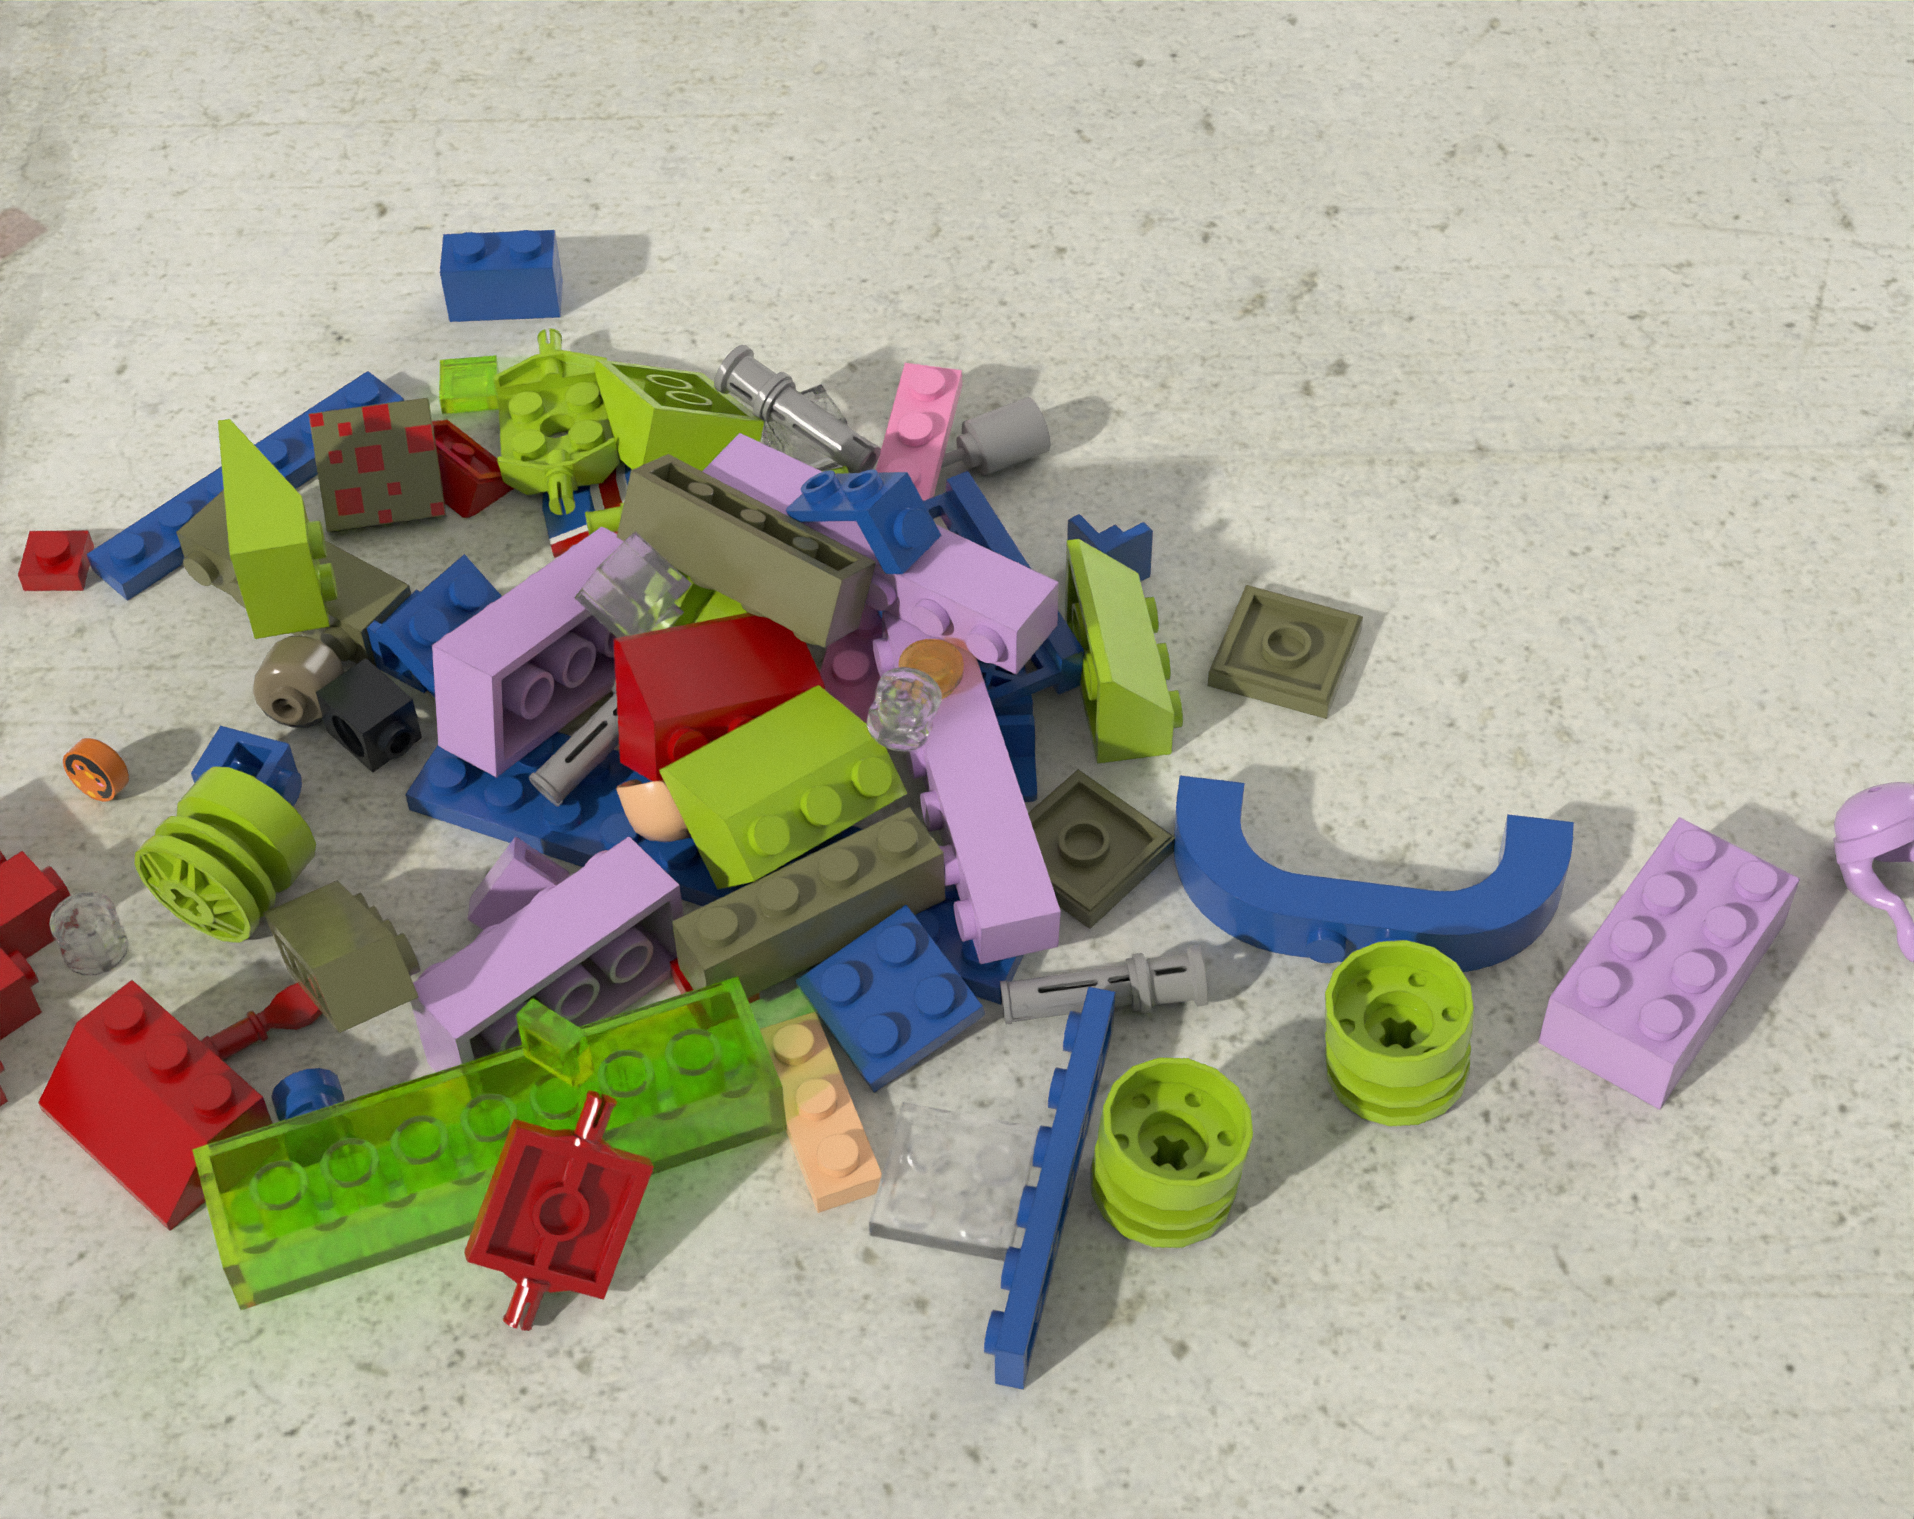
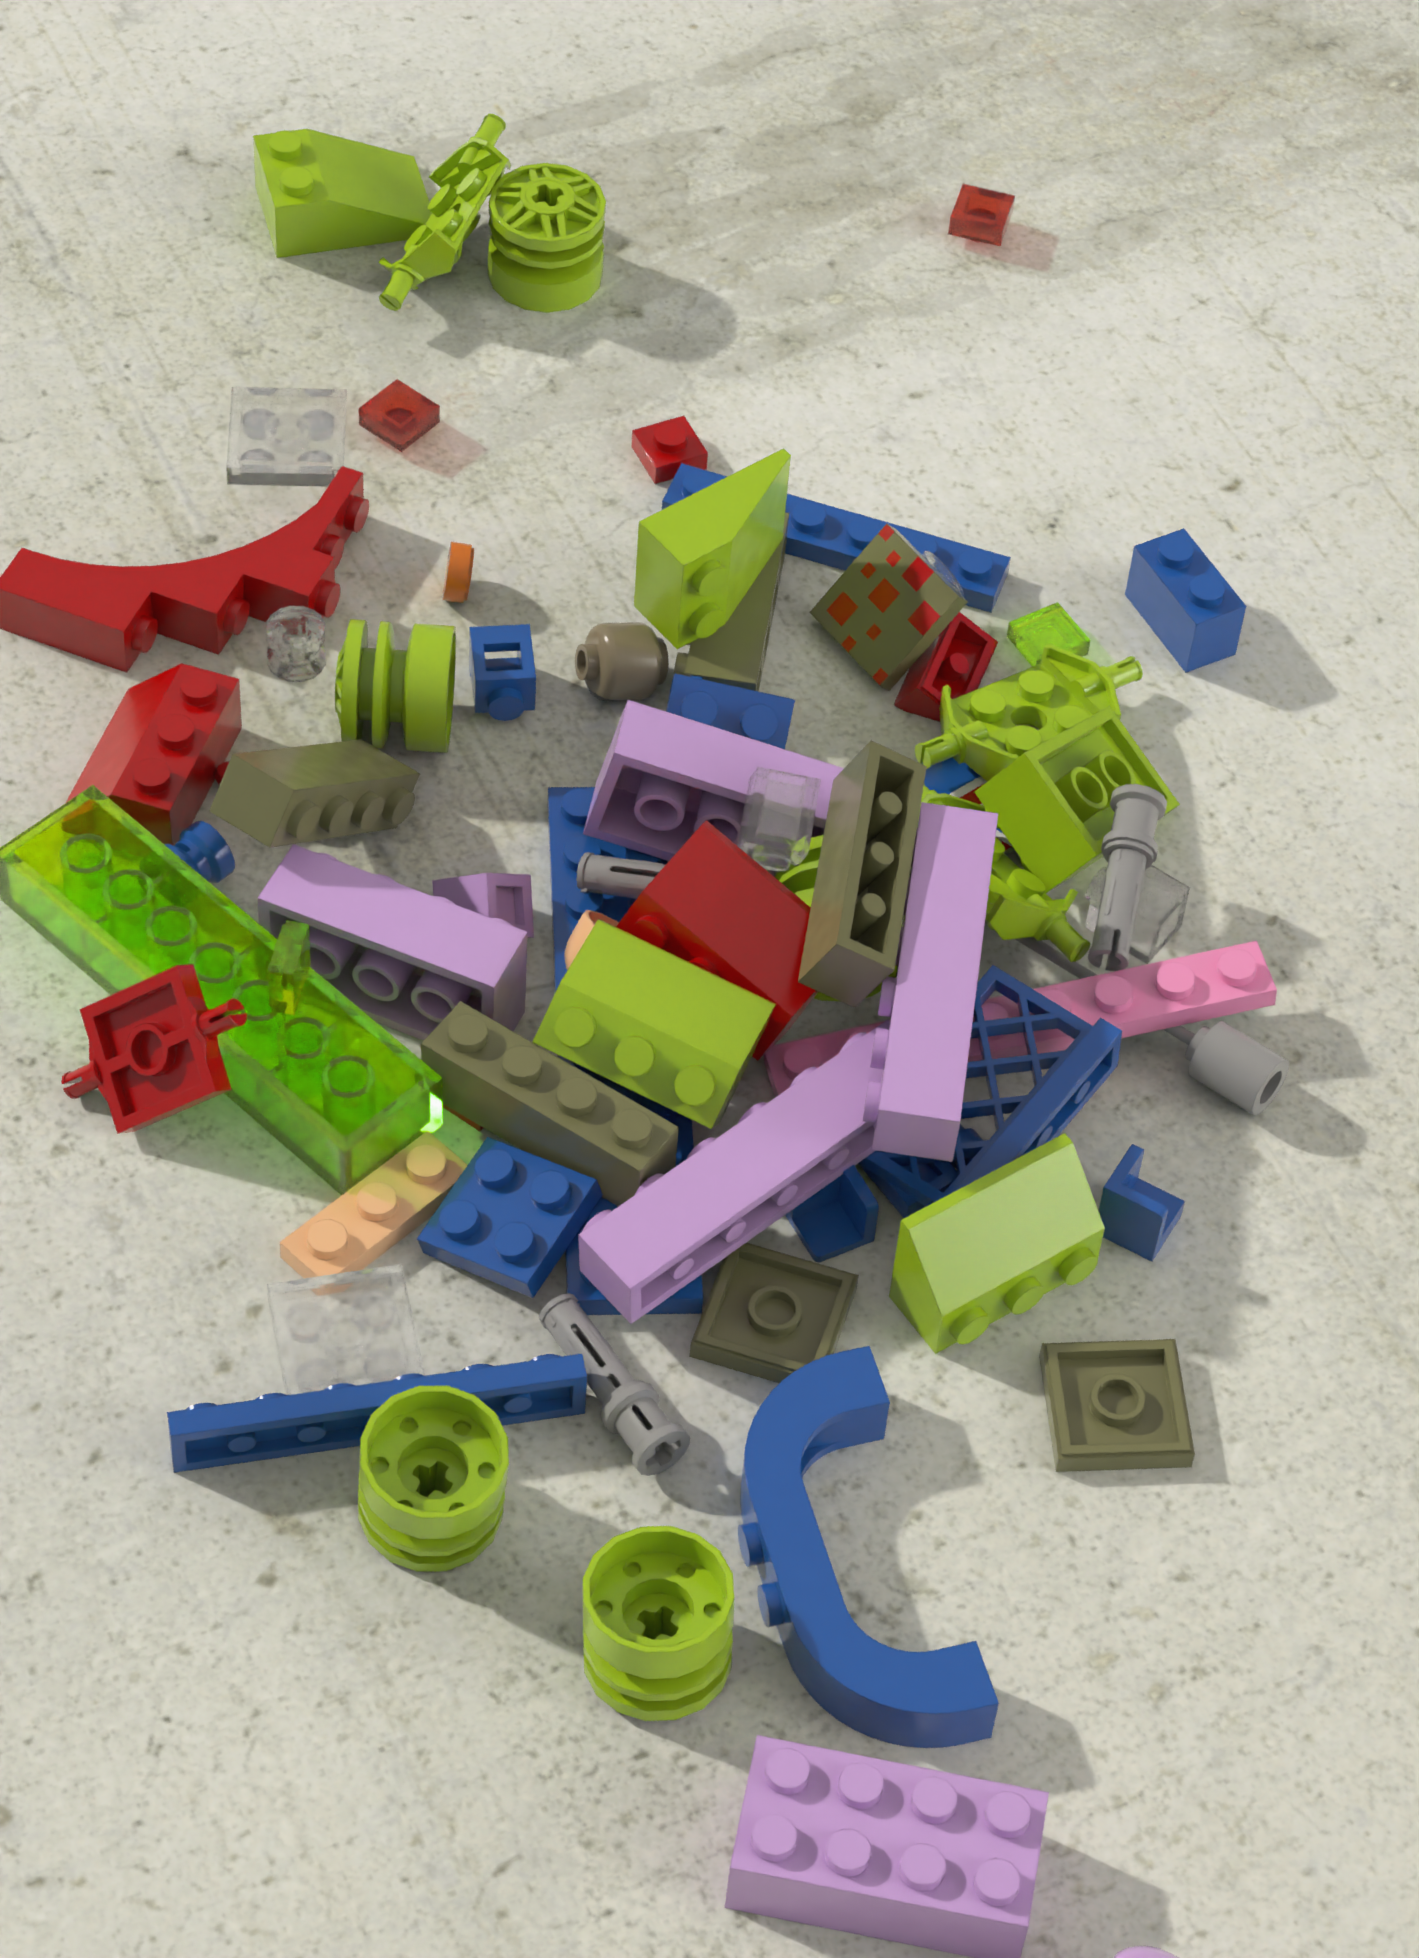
camera: 60 degrees right, 0 degrees up
(369, 715) = (601, 715): black brick -> none
(883, 507) = (932, 940): blue bracket -> none
(904, 709) = (751, 1078): clear wheel -> none
(936, 659) = (832, 1077): clear yellow plate -> none

